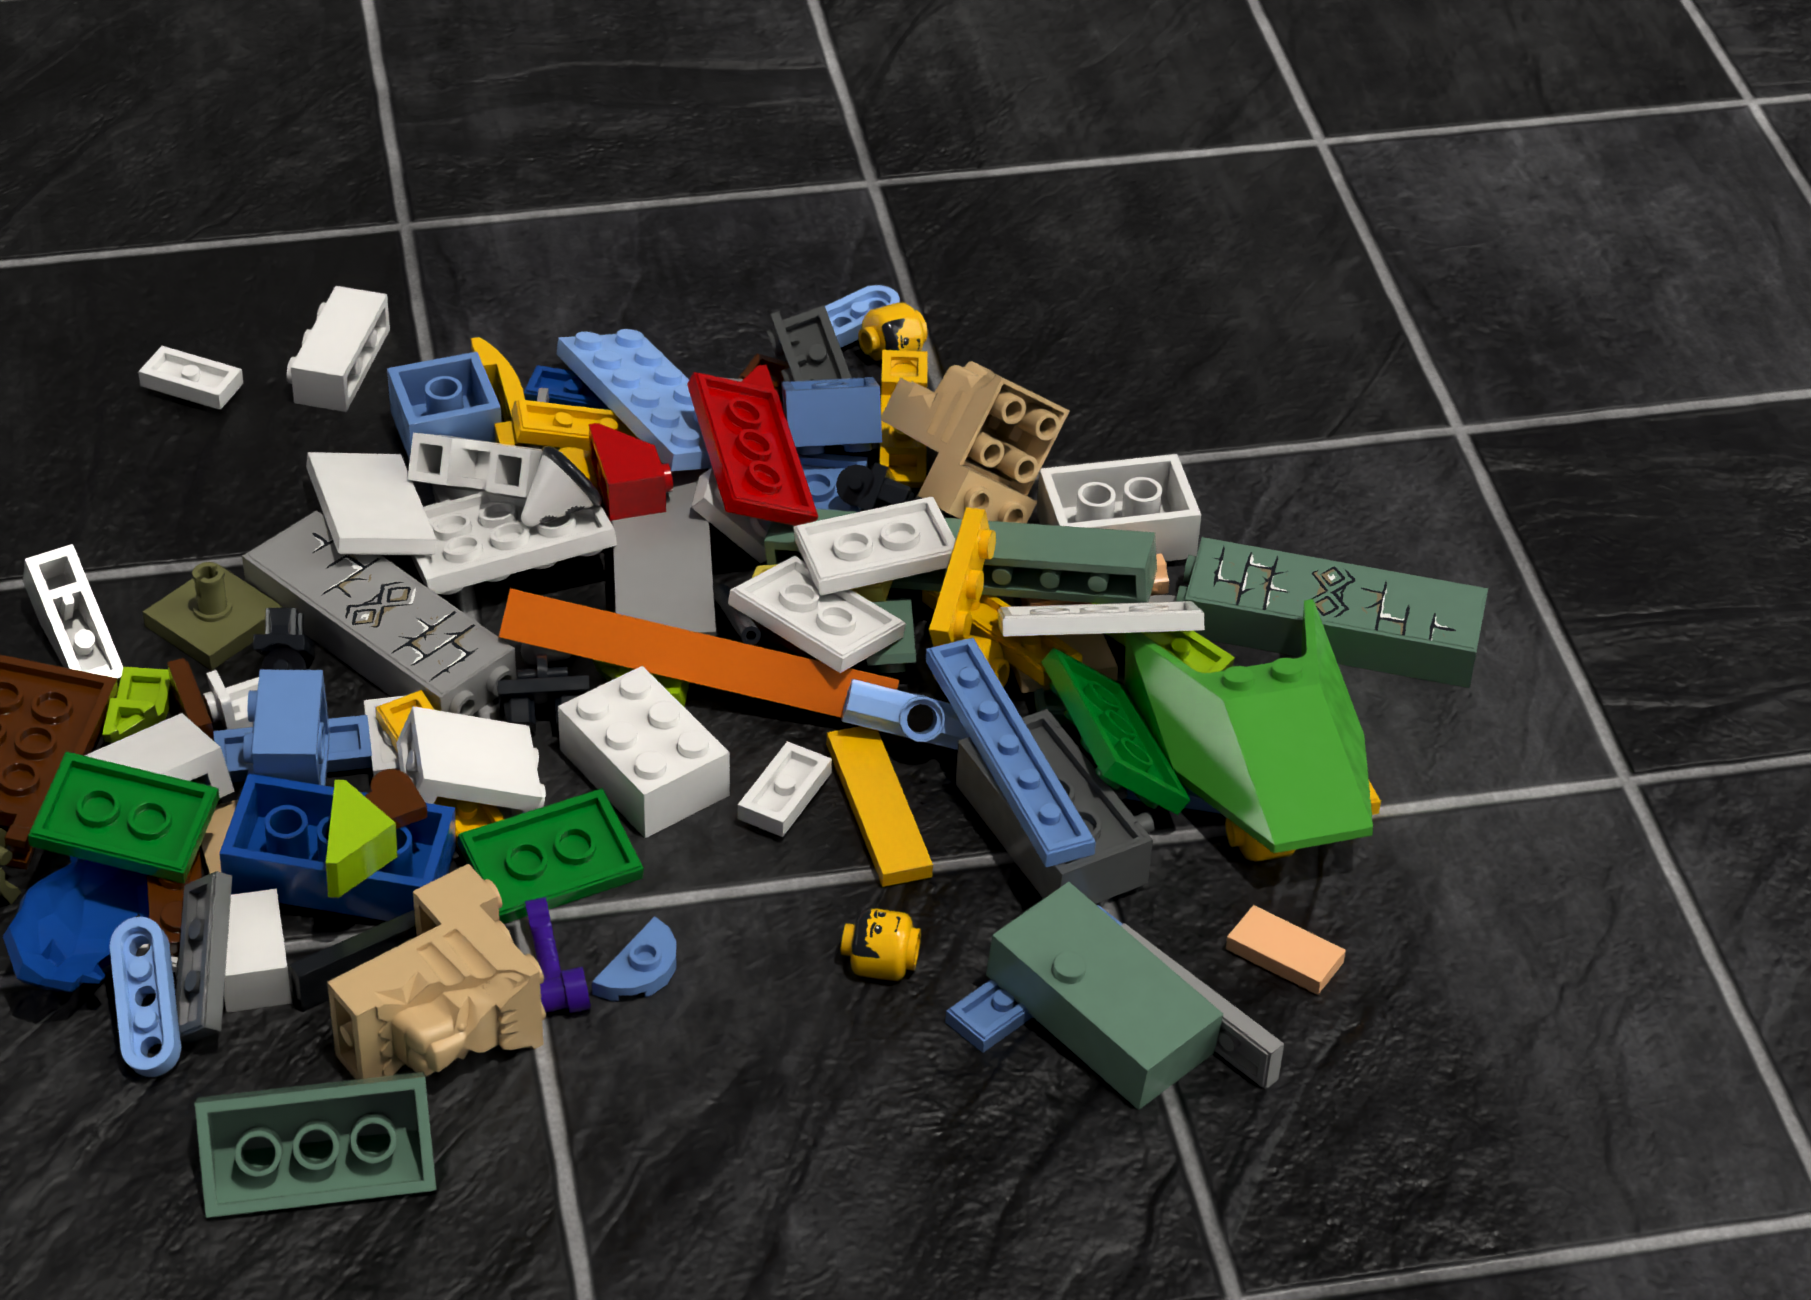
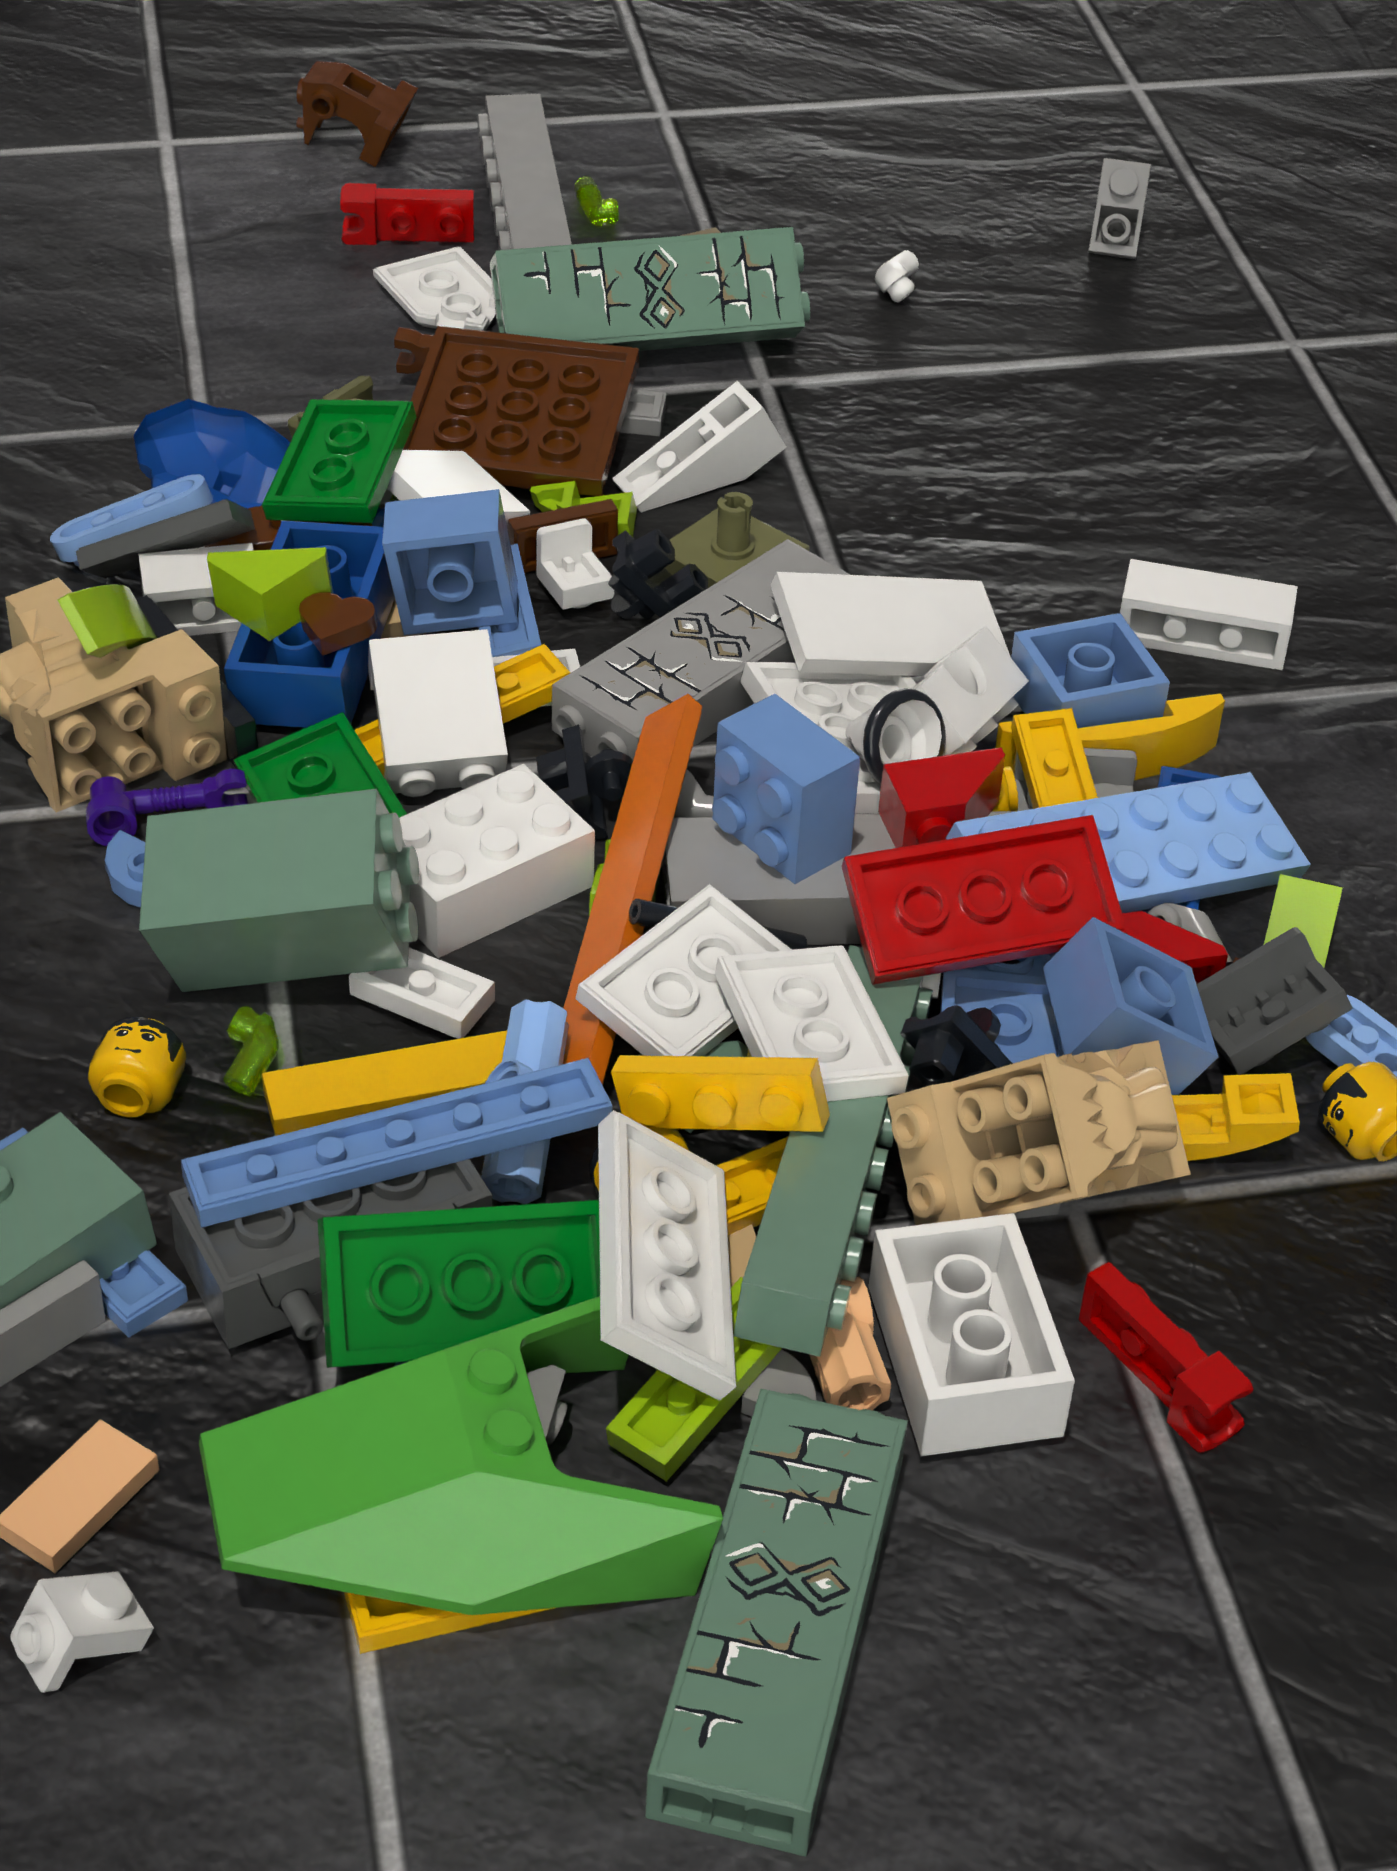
camera: 90 degrees right, 0 degrees up
(191, 377) = (1130, 515): white plate -> none
(381, 935) = (106, 619): none -> lime slope
(637, 535) = (785, 788): none -> medium blue brick
(702, 343) = (1306, 906): none -> lime slope
(743, 826) = (278, 891): none -> sand green brick
(850, 879) = (258, 1049): none -> clear neon green arm
(1122, 437) = (1165, 1359): none -> red plate
(1402, 929) = (75, 1621): none -> white bracket

